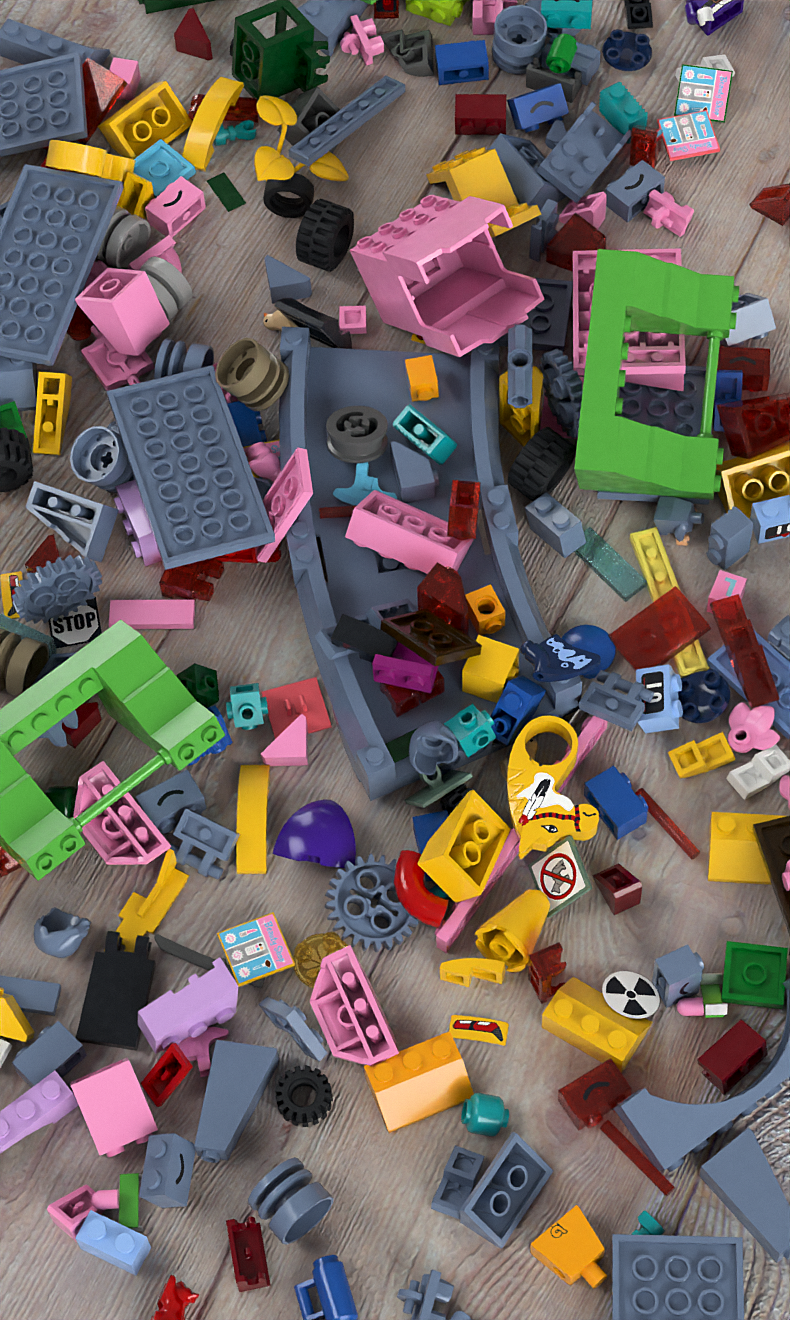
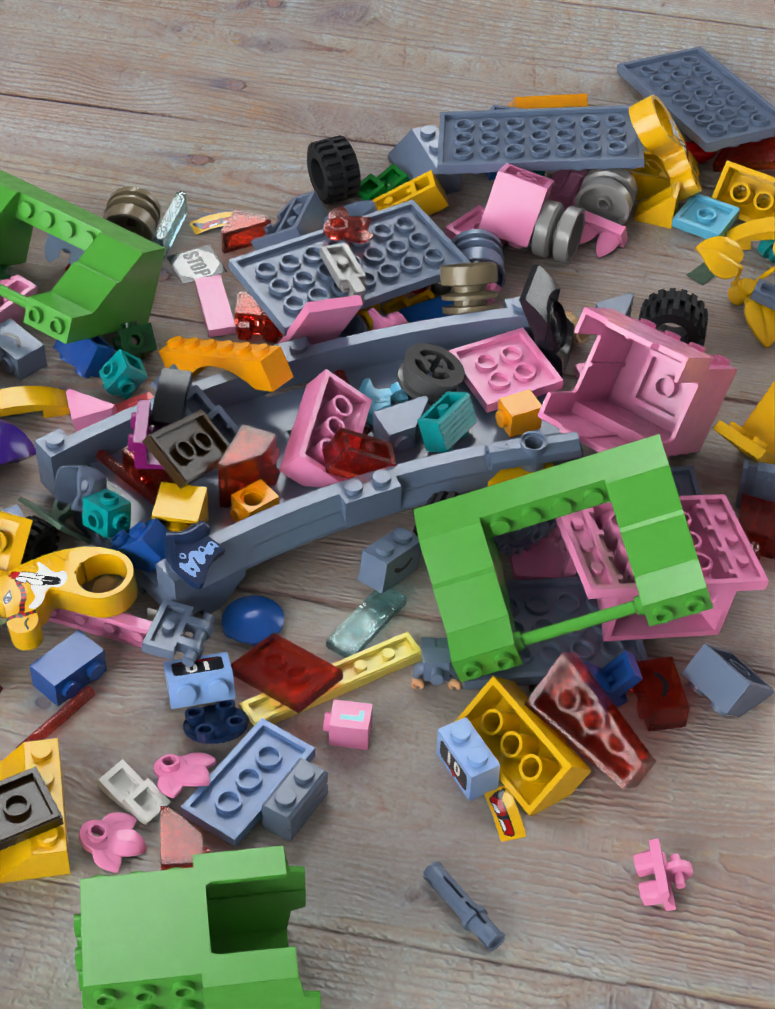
camera: 70 degrees right, 15 degrees down
(57, 589) = (205, 223): sand blue gear -> none
(142, 450) = (342, 226): none -> clear red plate
(175, 207) = (667, 233): bright pink brick -> none
(214, 465) = (344, 269): none -> light grey hinge
(286, 206) = (715, 295): black tyre -> none
(325, 567) = (257, 364): none -> light orange arch
(358, 374) = (505, 367): none -> bright pink plate
(415, 710) = (127, 476): none -> clear red bar
(701, 757) = (142, 736): yellow slope -> none
(729, 538) = (416, 706): sand blue brick -> none
(744, 651) = (267, 745): clear red slope -> none

